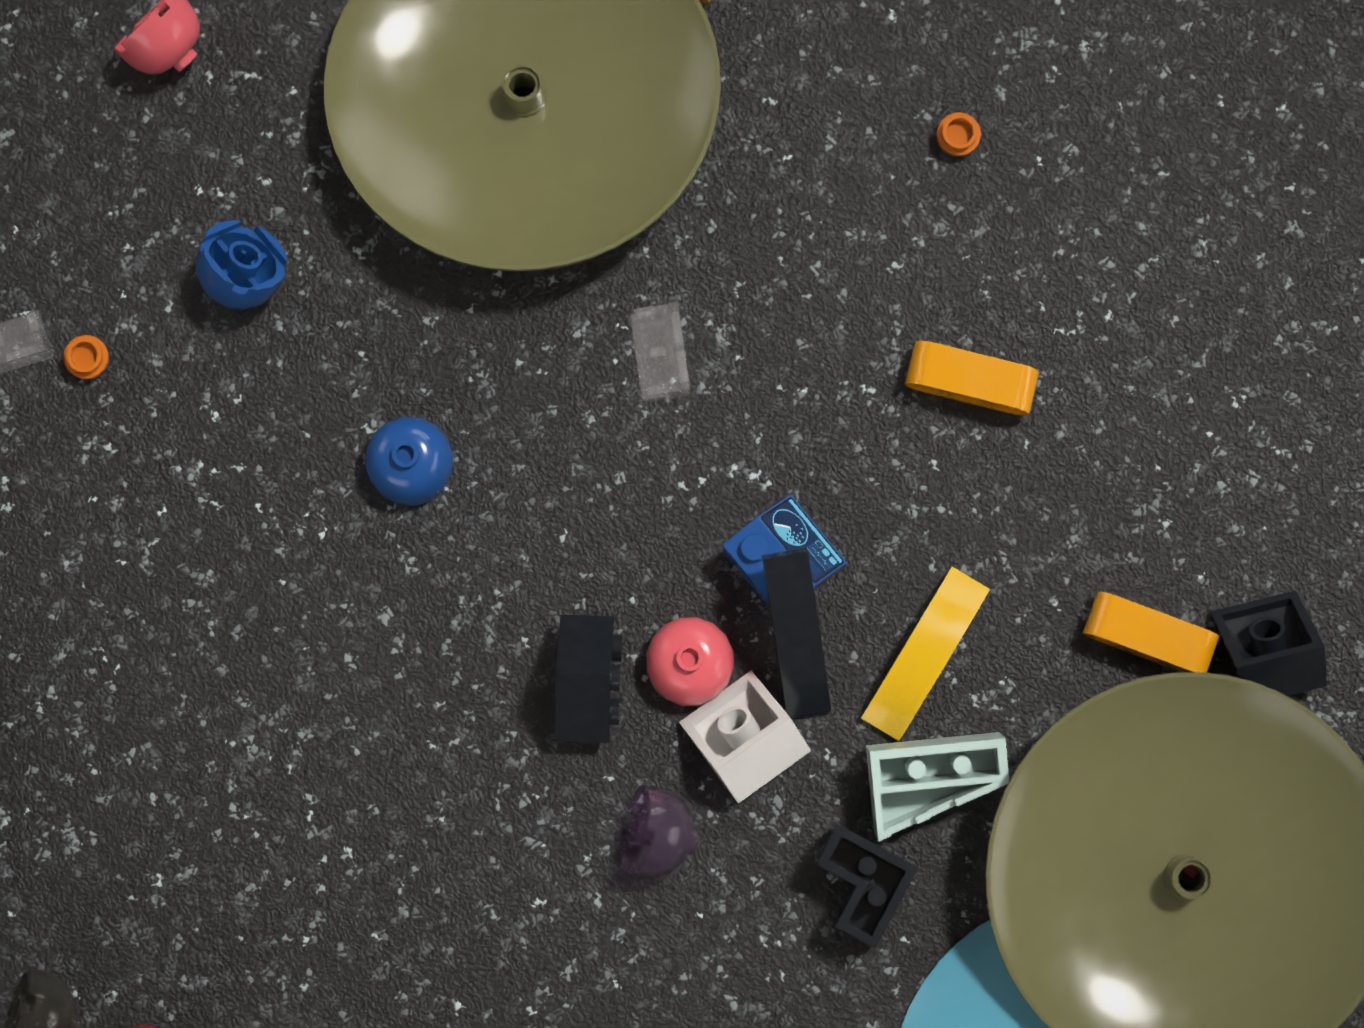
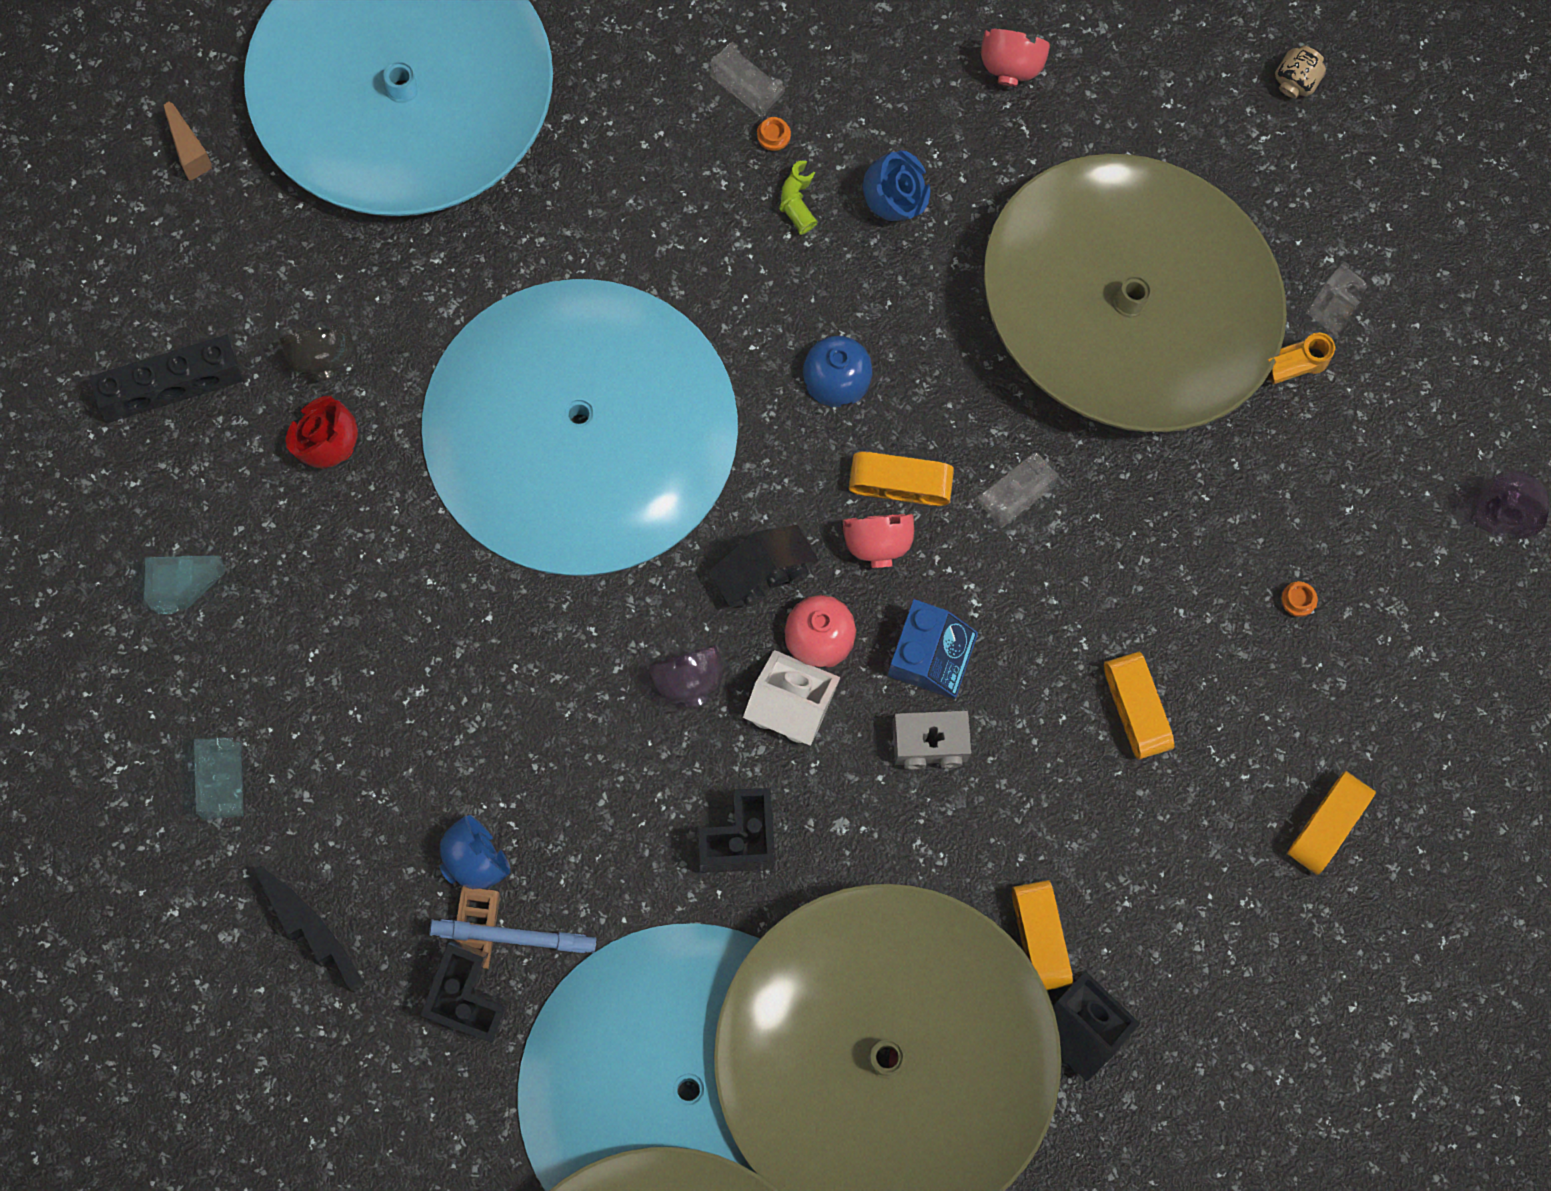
camera: 50 degrees right, 10 degrees down
(179, 387) = (792, 199): none -> lime piece
(389, 797) = (593, 490): none -> medium azure dish
(574, 469) = (901, 478): none -> light orange beam
(628, 534) = (879, 537): none -> coral cylinder
(796, 632) = (884, 683): black slope -> none
(857, 633) = (948, 728): none -> light grey brick
(925, 654) = (927, 786): yellow slope -> none
(930, 776) = (843, 836): light aqua wedge -> none
(1212, 261) = (1331, 822): none -> light orange beam

